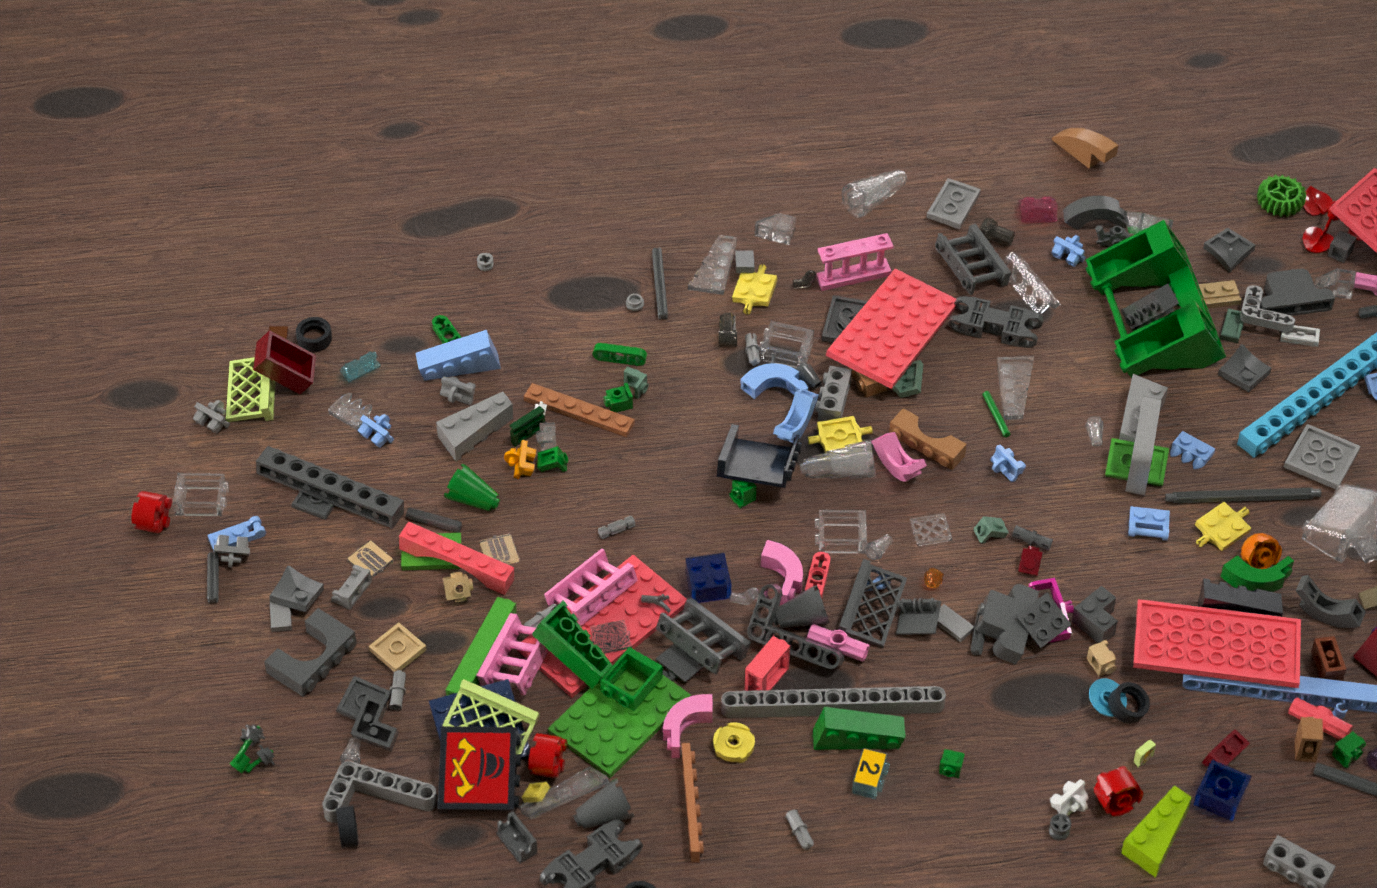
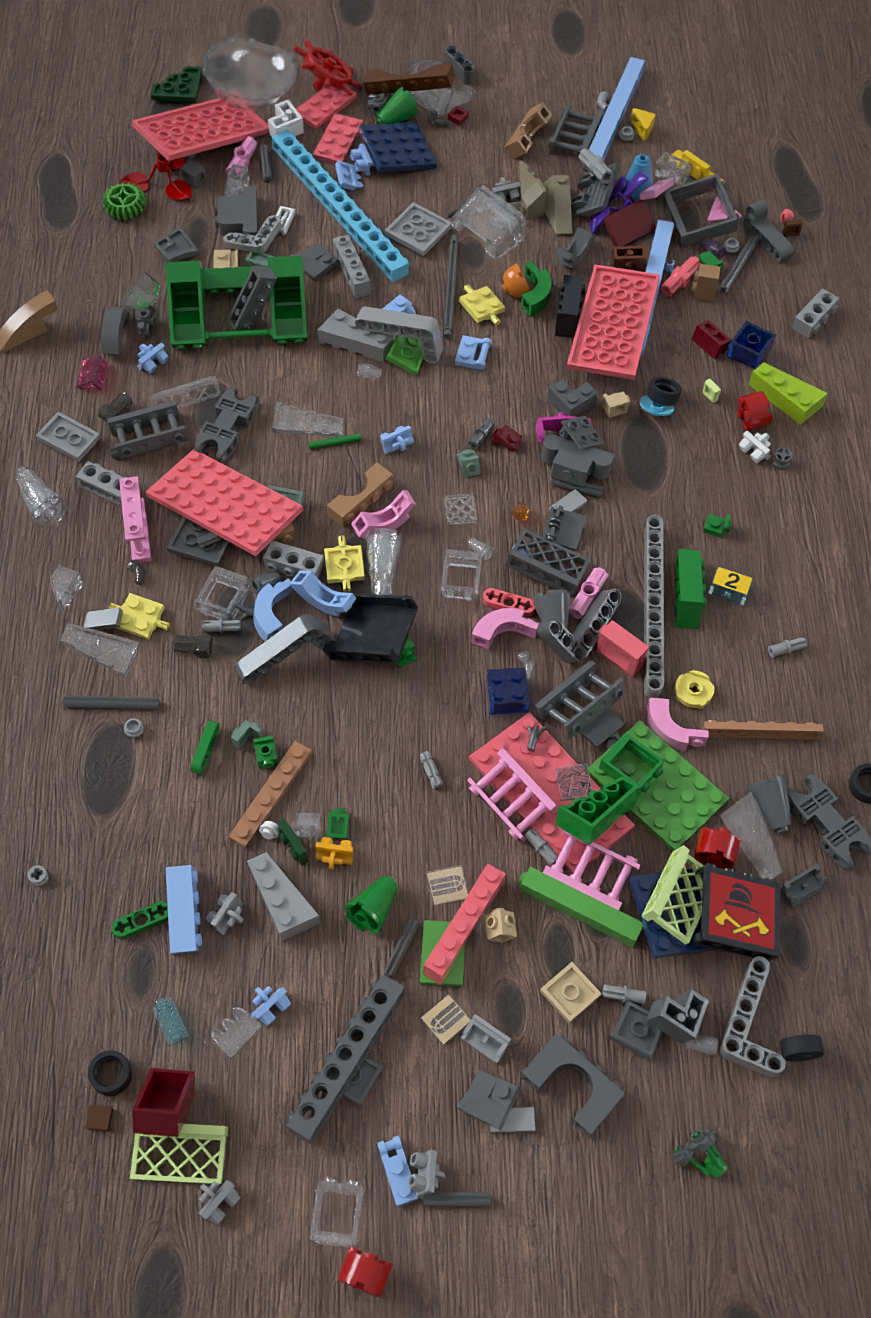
camera: 85 degrees left, 10 degrees up
(535, 792) = (752, 864): light yellow tile -> none
(735, 393) = (282, 644): none -> dark grey beam
(903, 238) = (100, 482): none -> light grey brick
(1242, 399) = (351, 266): none -> light grey brick

